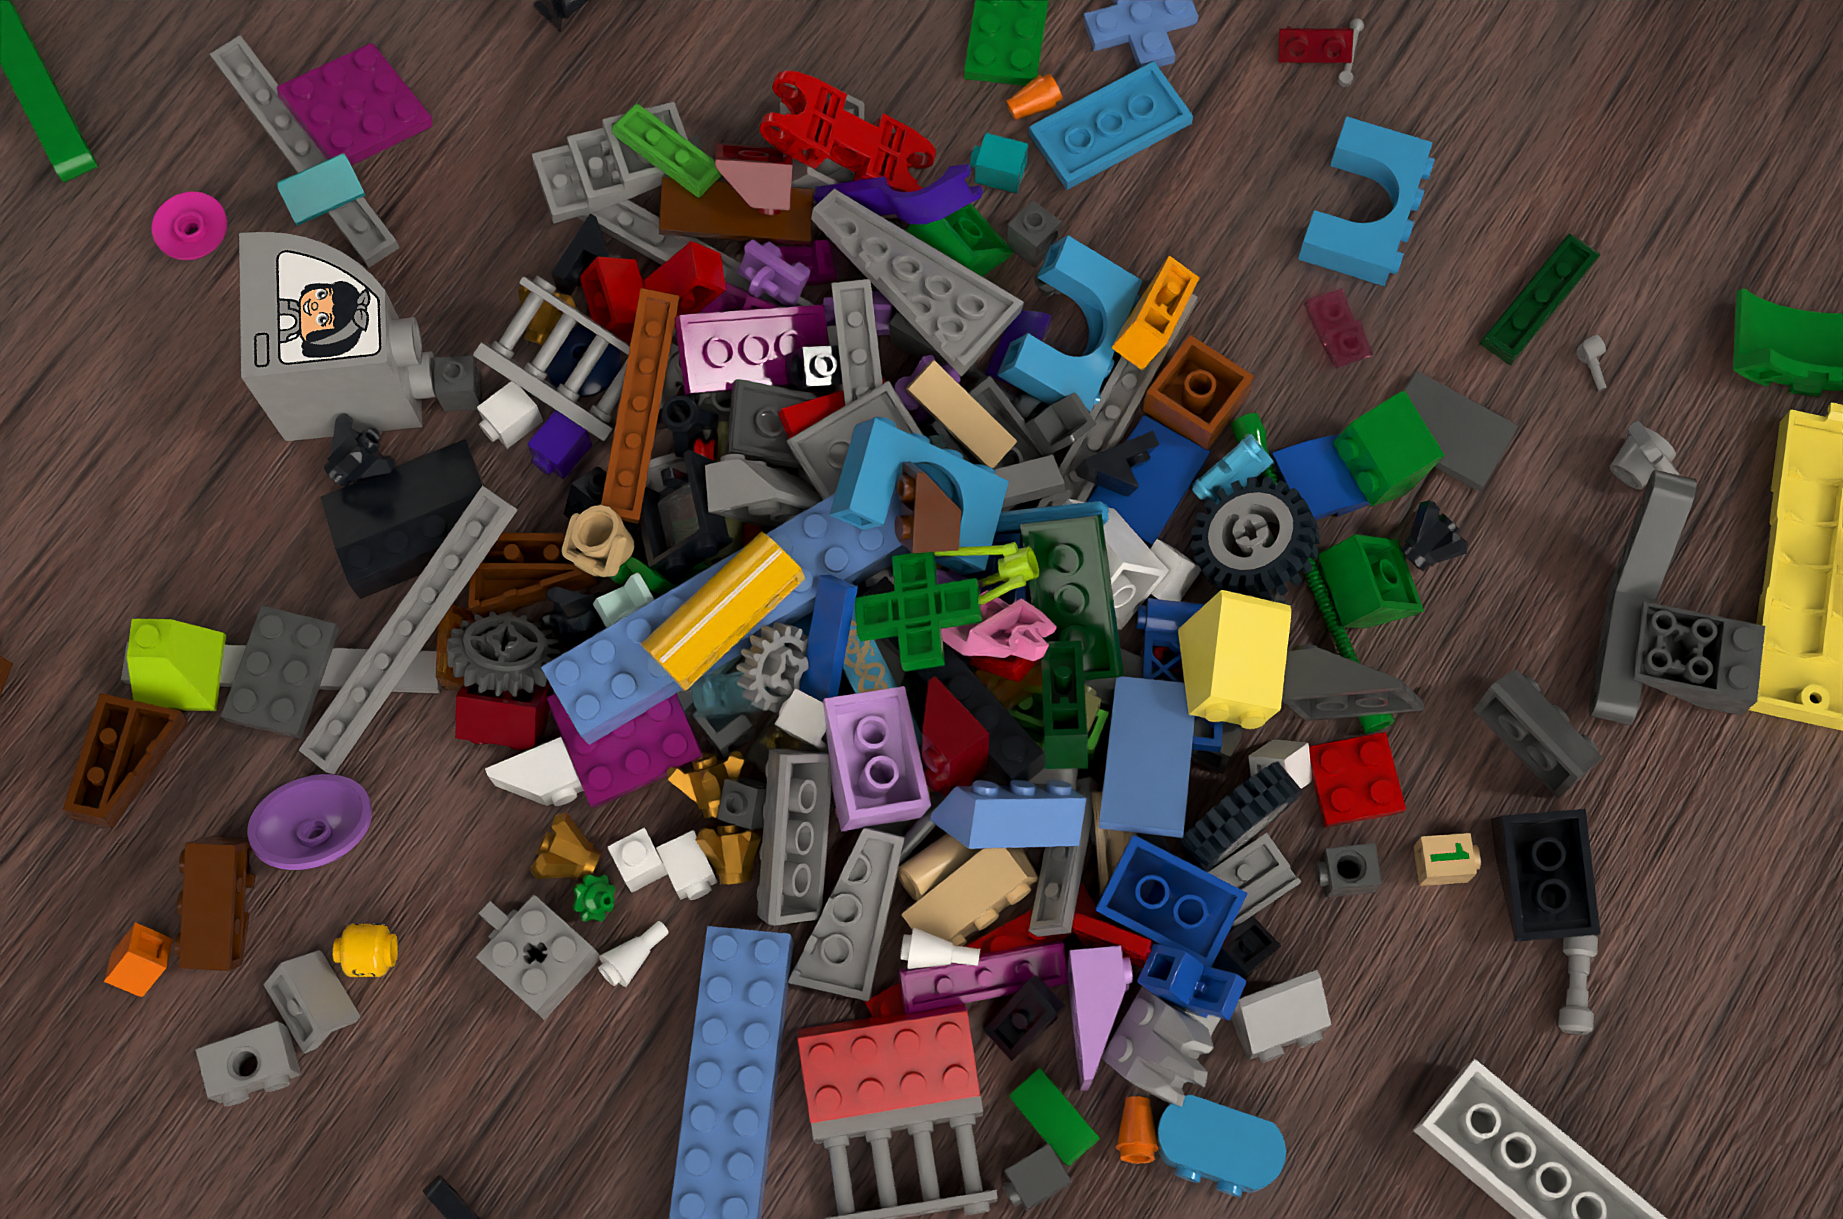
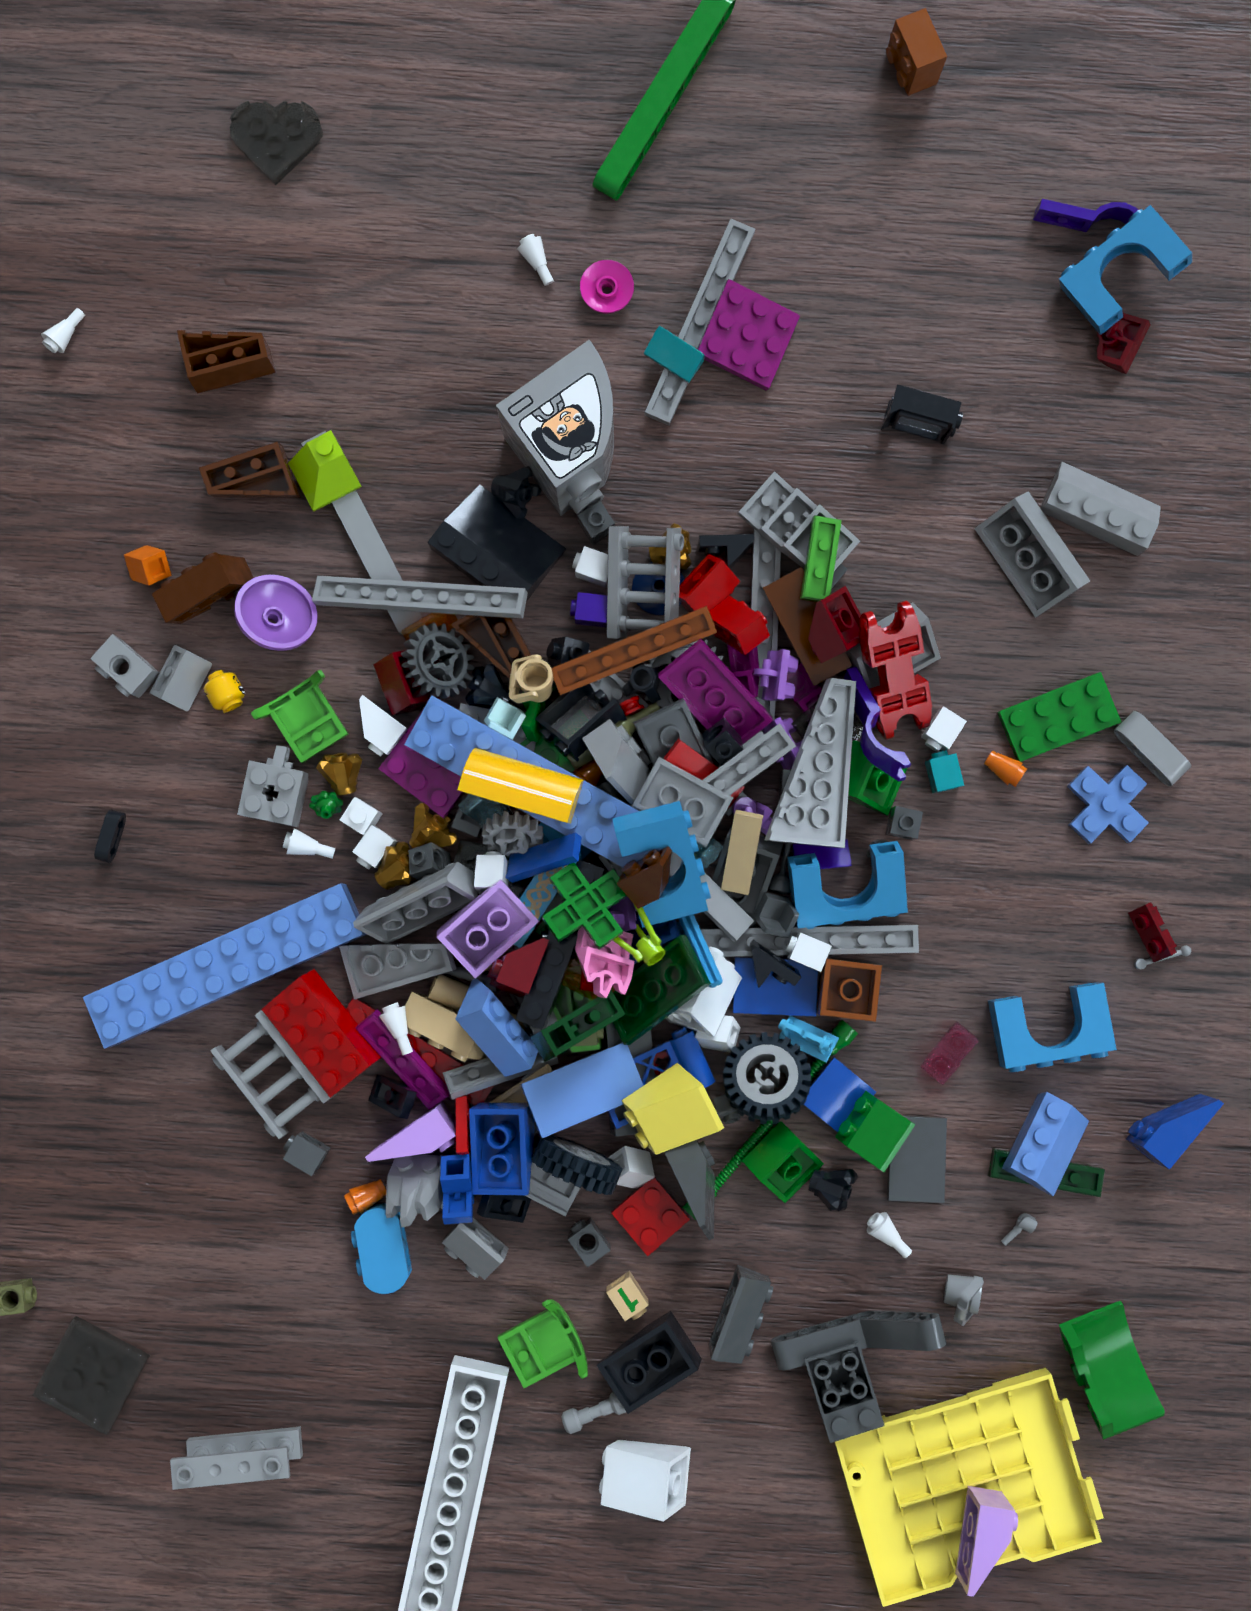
camera: 60 degrees right, 15 degrees up
(89, 285) = (533, 251): none -> white cone
(280, 672) = (356, 535): dark grey plate -> none
(468, 862) = (305, 718): none -> bright green piece
(950, 136) = (943, 730): none -> white brick
(1054, 1117) = (346, 1144): green slope -> none
(1110, 125) = (1014, 828): dark azure plate -> none
(1126, 410) = (808, 951): none -> white brick
(1156, 314) = (886, 935): light orange slope -> none
(1457, 1002) = (544, 1345): none -> bright green piece
(1502, 275) = (1046, 1143): none -> medium blue slope
(1515, 510) = (883, 1229): none -> white cone
(1561, 135) = (1171, 1130): none -> blue slope
(1695, 965) = (645, 1478): none -> white slope

